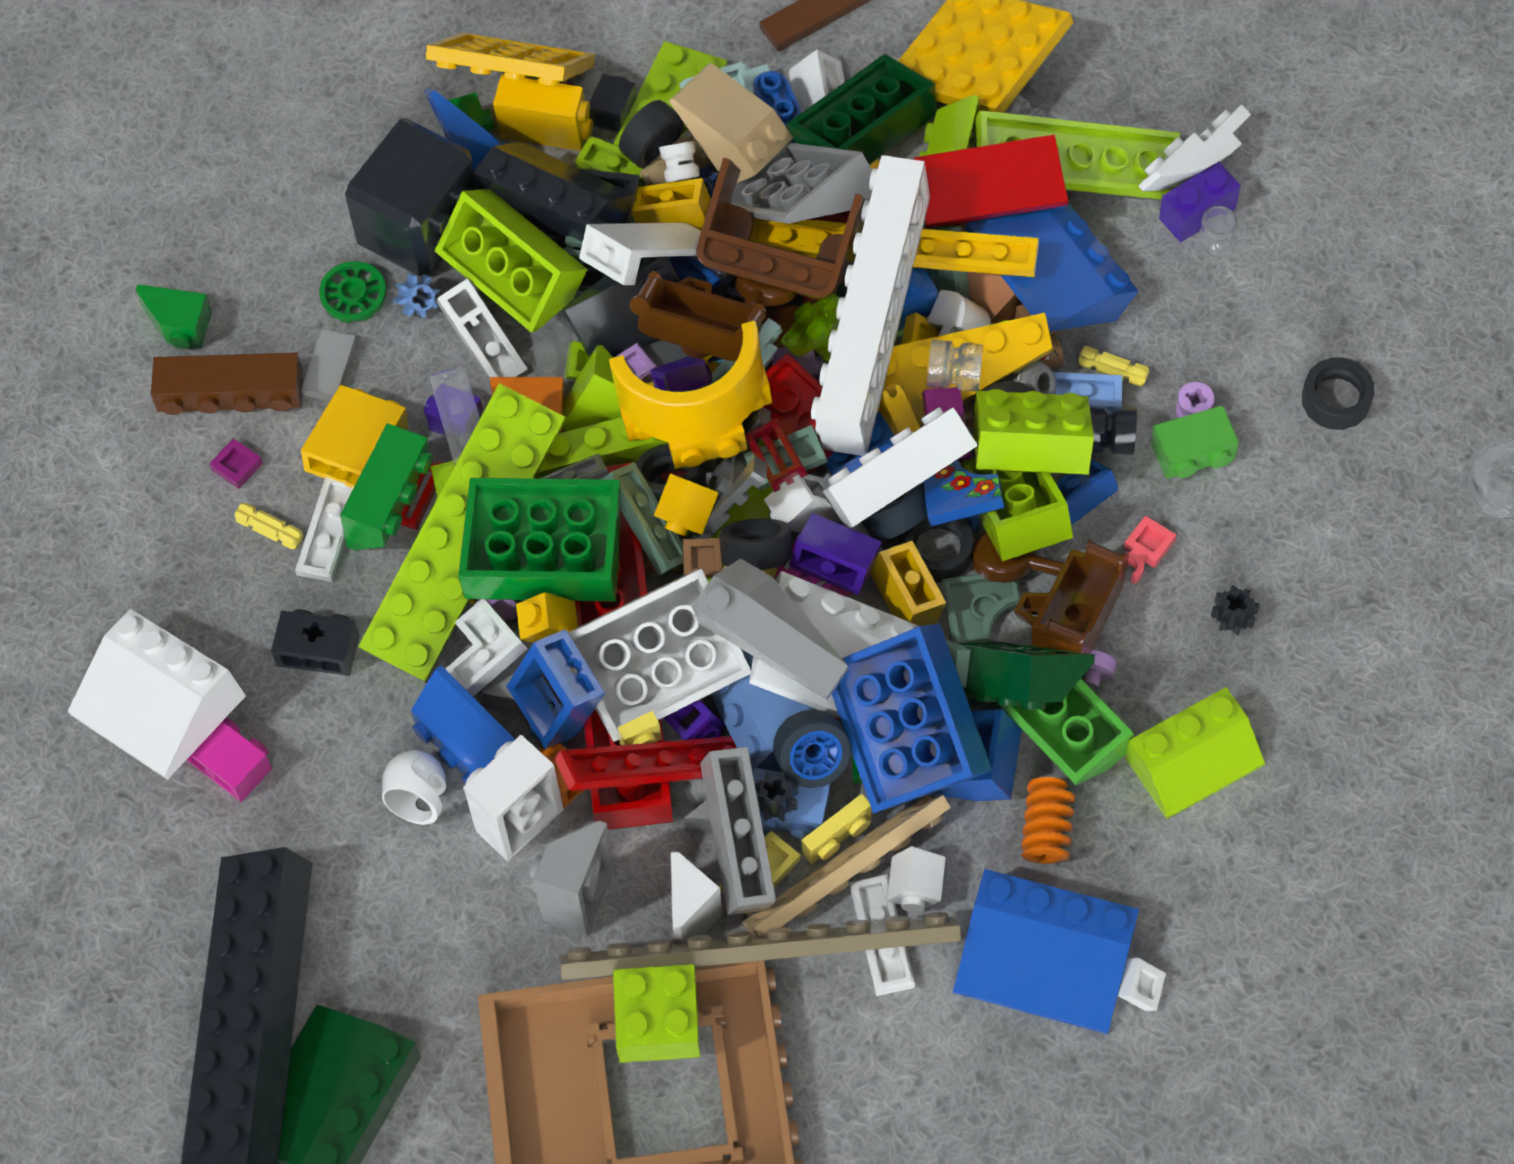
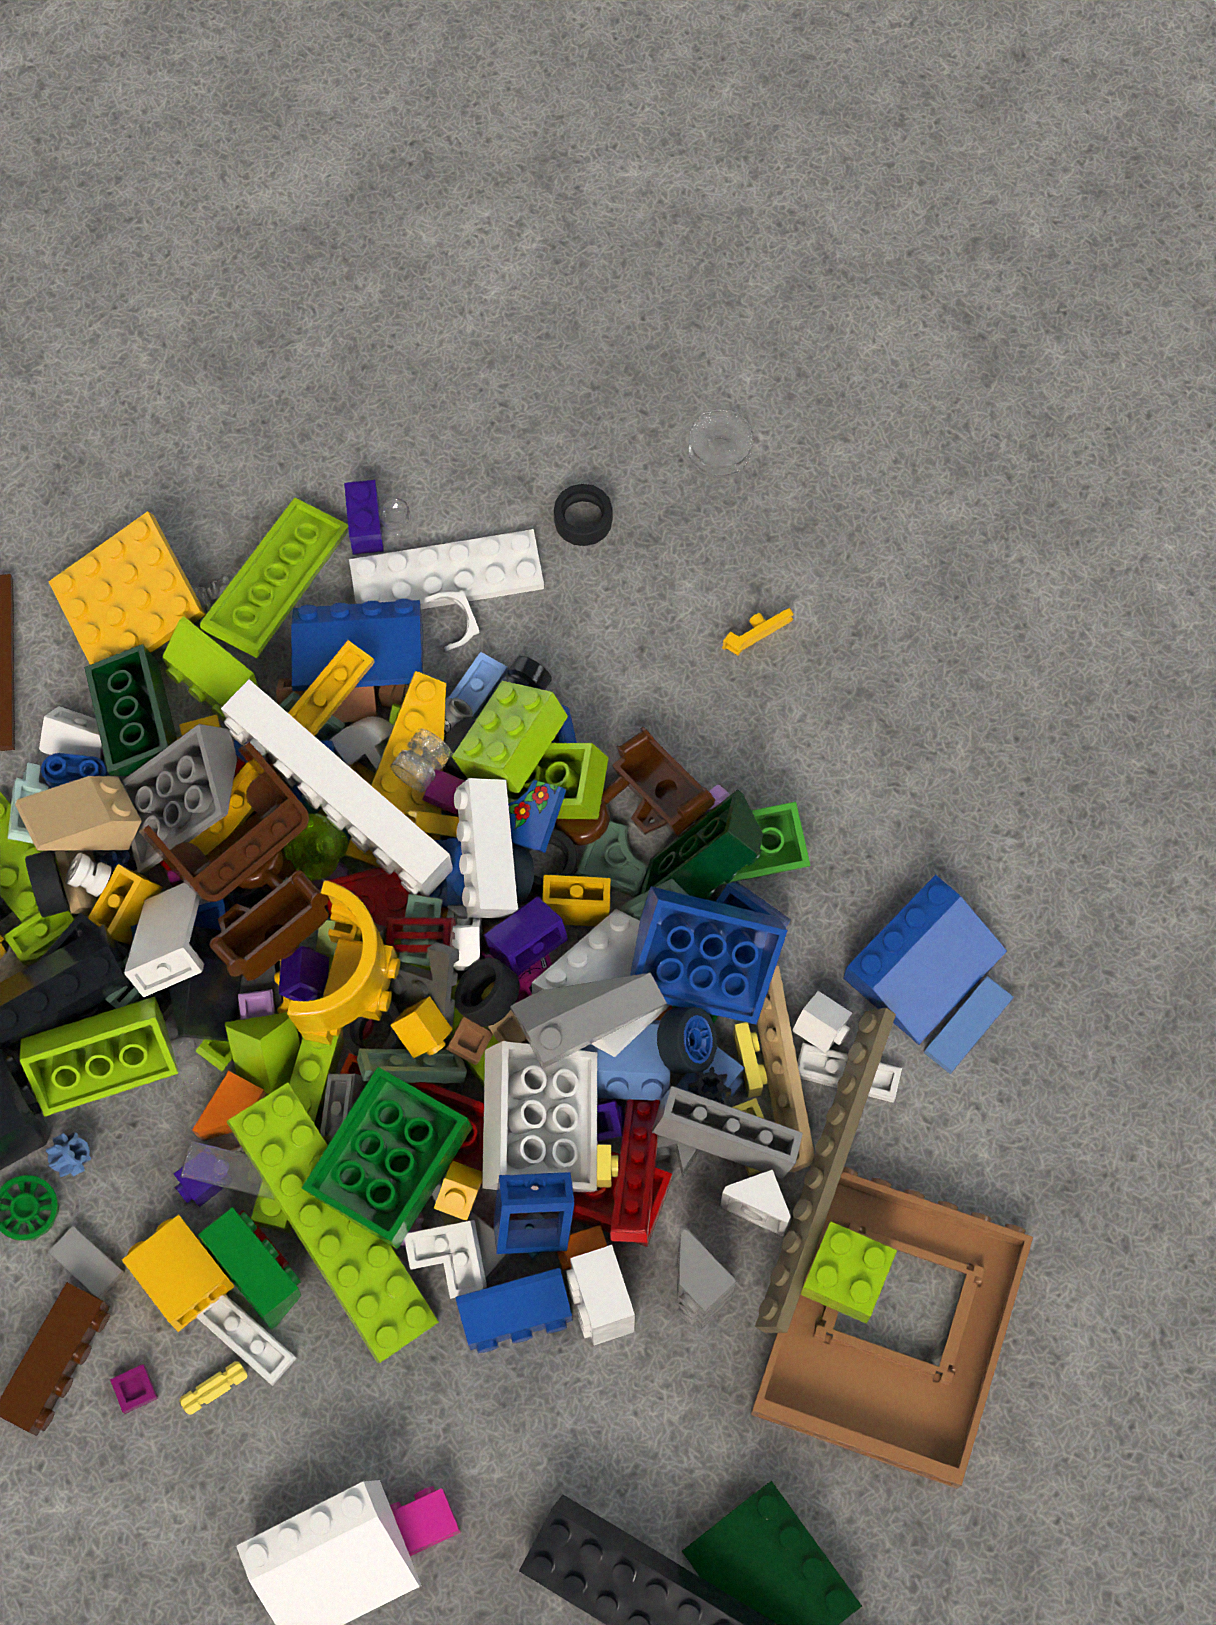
camera: 65 degrees left, 5 degrees up
(315, 642) = (371, 1389): black brick -> none
(411, 777) = (528, 1371): white helmet -> none
(480, 331) = (137, 1118): white slope -> none
(994, 181) = (271, 642): red tile -> none
(1002, 1030) = (968, 1025): none -> medium blue tile
(1046, 822) = (824, 903): orange piece -> none
(1113, 365) = (464, 654): light yellow axle -> none
(1142, 984) = (986, 906): white plate -> none
(1147, 356) = (461, 600): none -> white cap
(1147, 545) = (632, 712): coral plate -> none
(1194, 442) = (567, 633): bright green brick -> none
(1195, 153) = (326, 489): white slope -> none
(1195, 753) = (822, 770): lime slope -> none
(1196, 310) = (477, 566): none -> white plate
(1196, 391) = (533, 623): lavender wheel -> none
(1242, 616) = (716, 679): black gear -> none
(1320, 622) = (760, 629): none -> yellow piece

